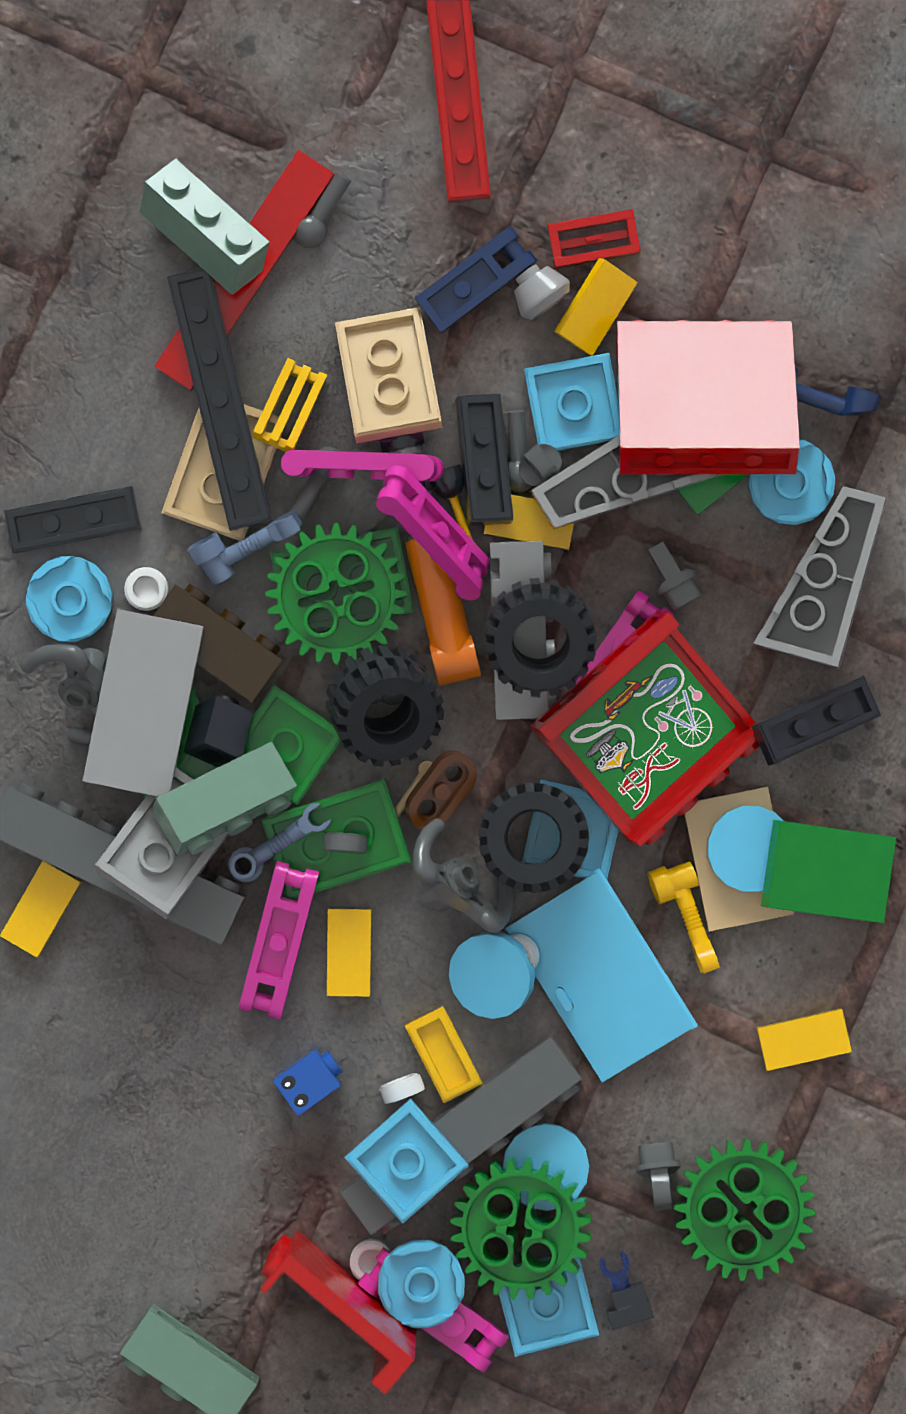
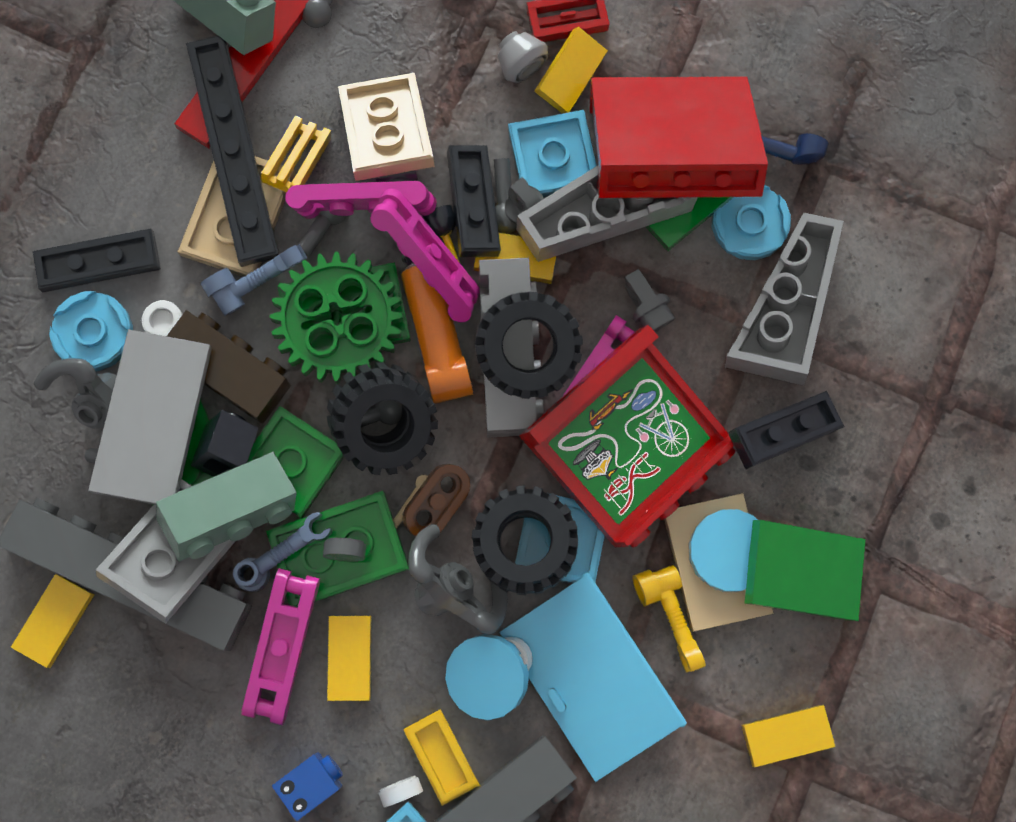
camera: 10 degrees left, 10 degrees down
(474, 280) = (460, 50): dark blue plate -> none

